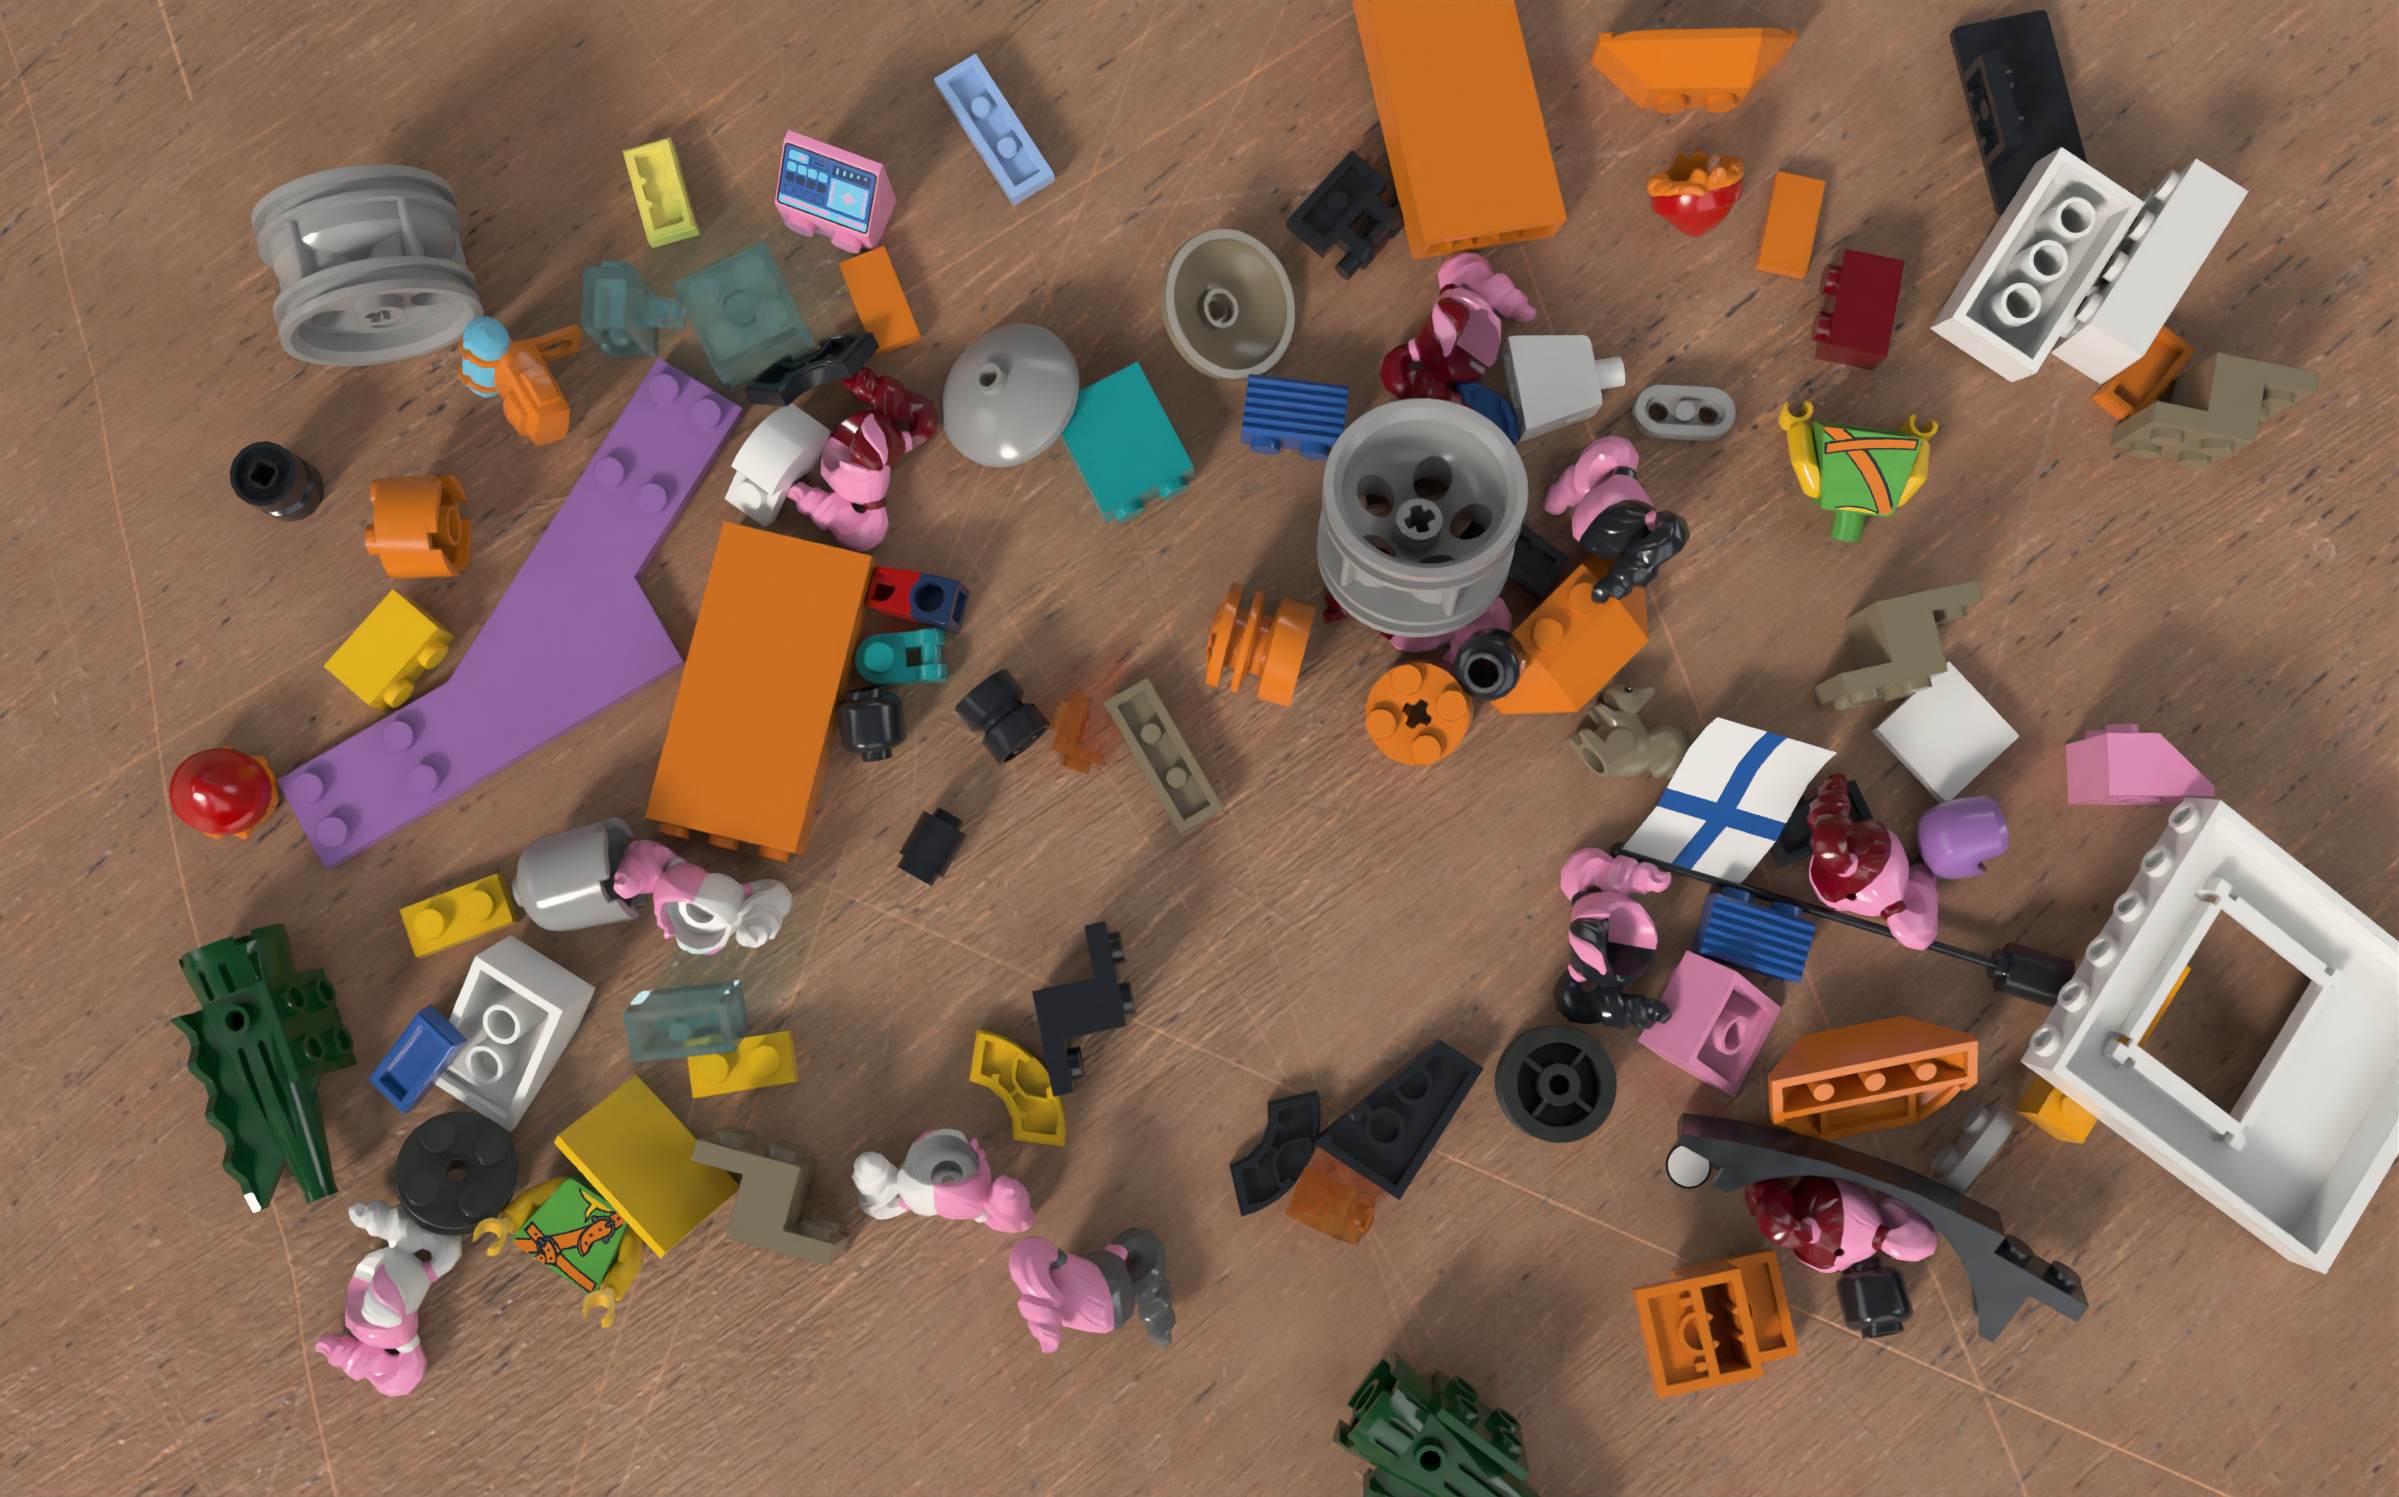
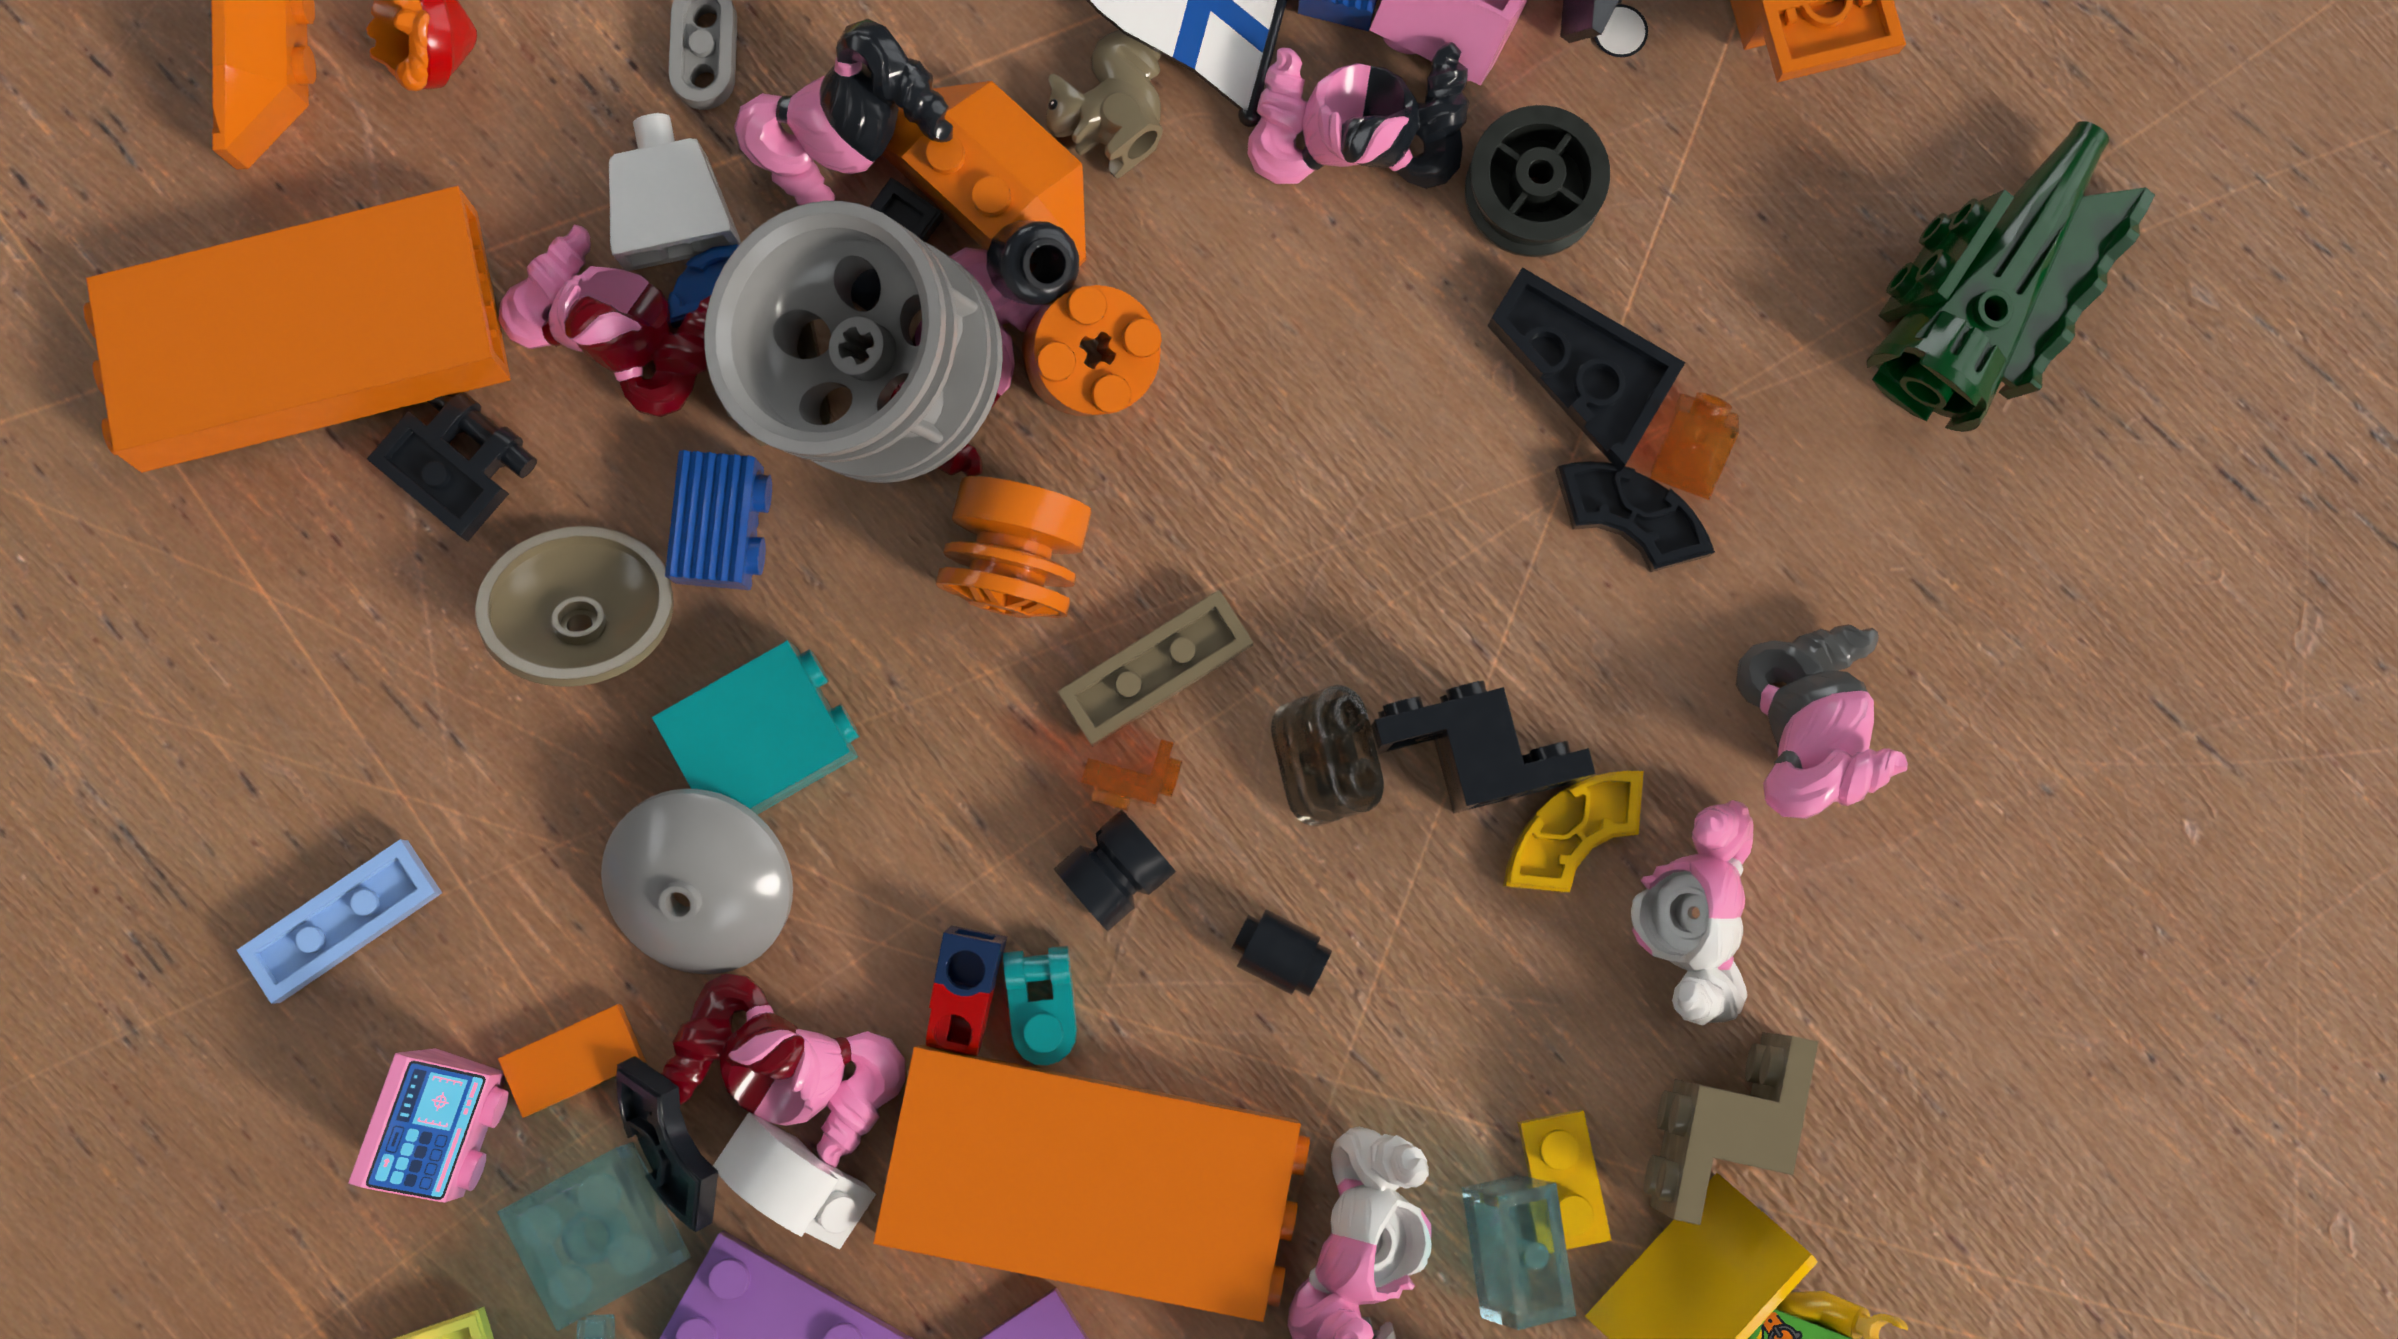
camera: 90 degrees left, 0 degrees up
(871, 722) = (1127, 1038): black head -> none
(1085, 888) = (1327, 756): none -> clear smoke brick

